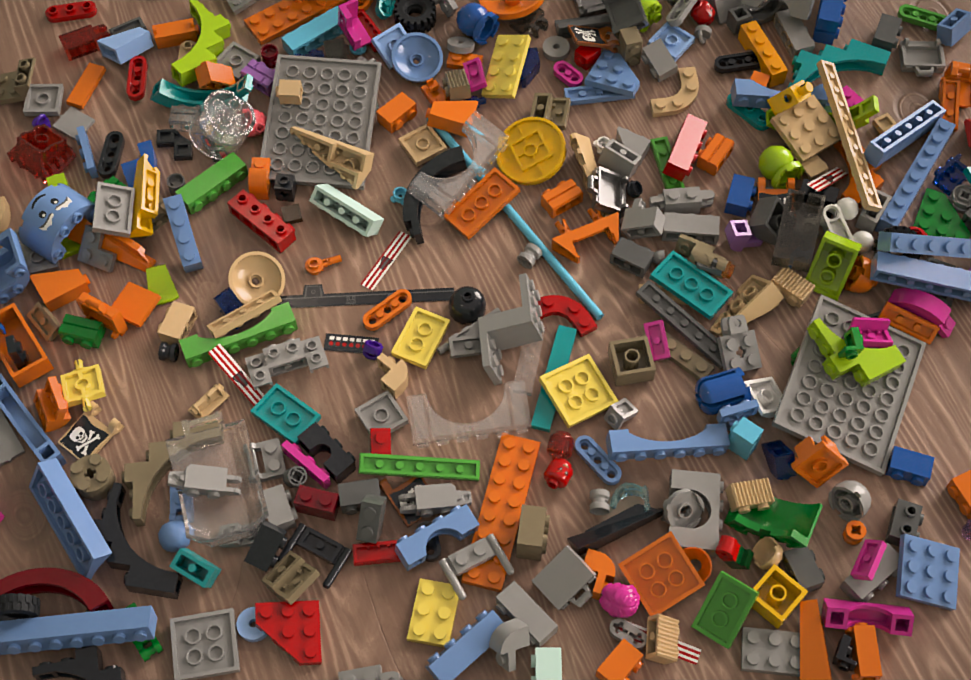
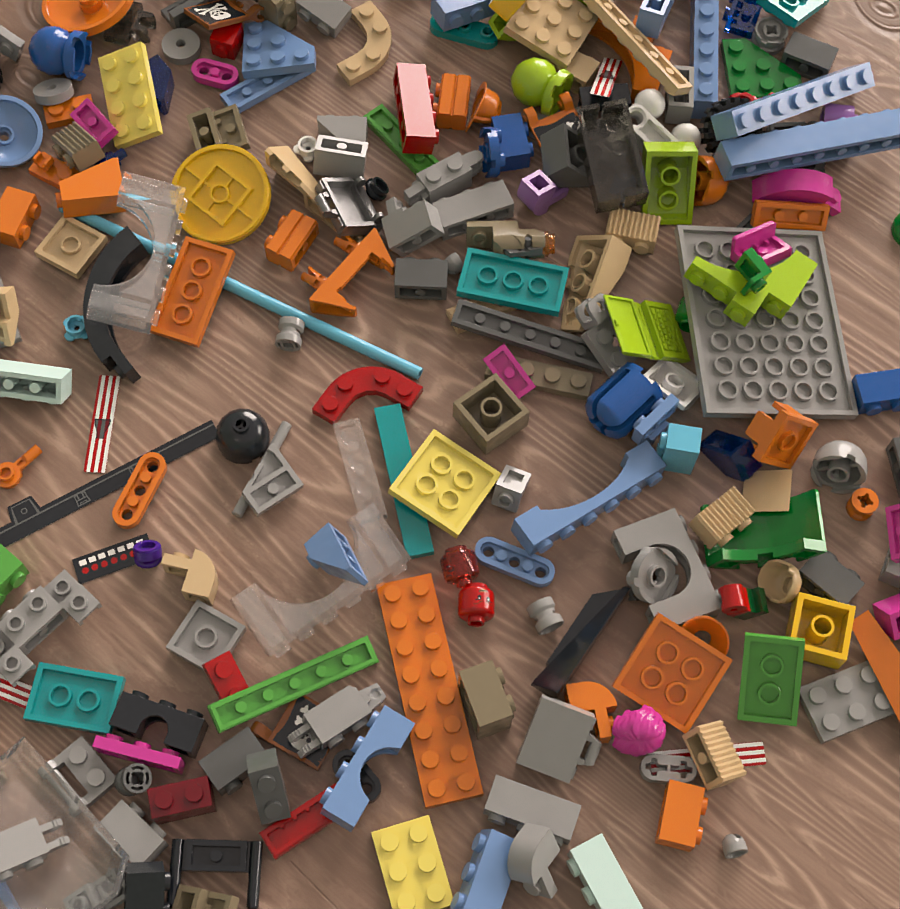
camera: 30 degrees left, 5 degrees up
(420, 337) = (203, 507): light yellow plate -> none
(471, 557) = (424, 772): light grey plate -> none
(484, 400) = (334, 555): none -> medium blue slope
(510, 329) = (319, 443): light grey bracket -> none
(631, 489) = (576, 579): clear light blue helmet -> none
(720, 201) = (492, 157): none -> blue plate
(736, 165) = (484, 106): none -> orange piece
(764, 353) = (646, 329): none -> lime piece
(792, 493) = (769, 490): none -> tan sticker

